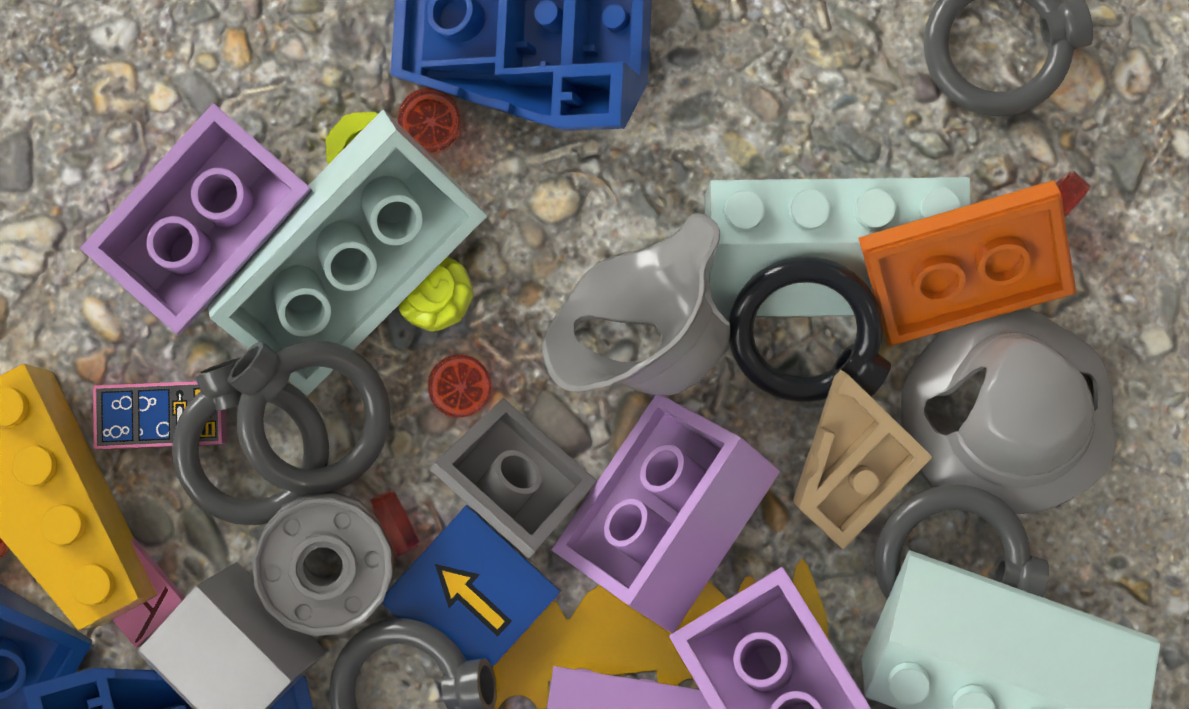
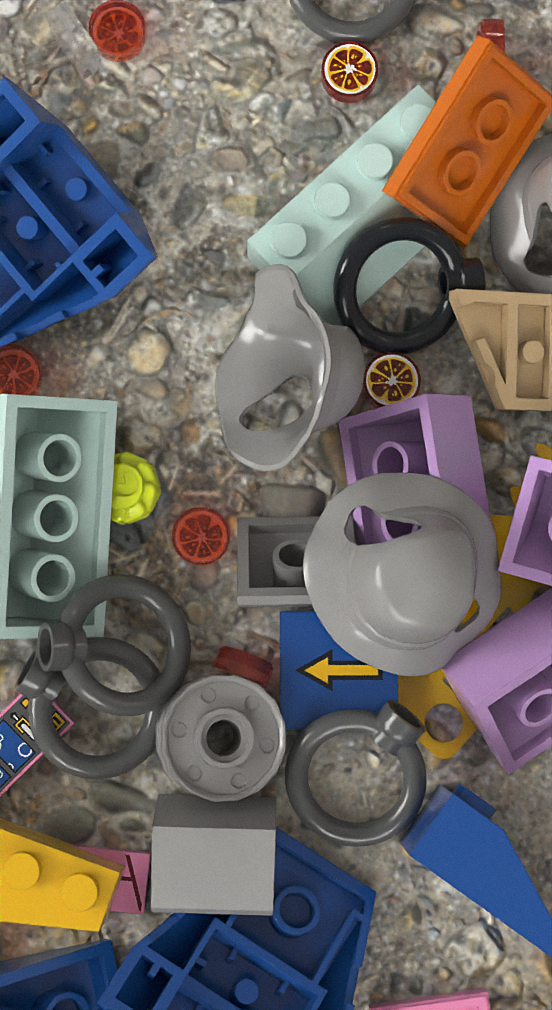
camera: 45 degrees left, 0 degrees up
(574, 593) = (404, 596): none -> light grey piece
(729, 399) = (390, 379): none -> tile
(924, 118) = (349, 72): none -> clear red tile

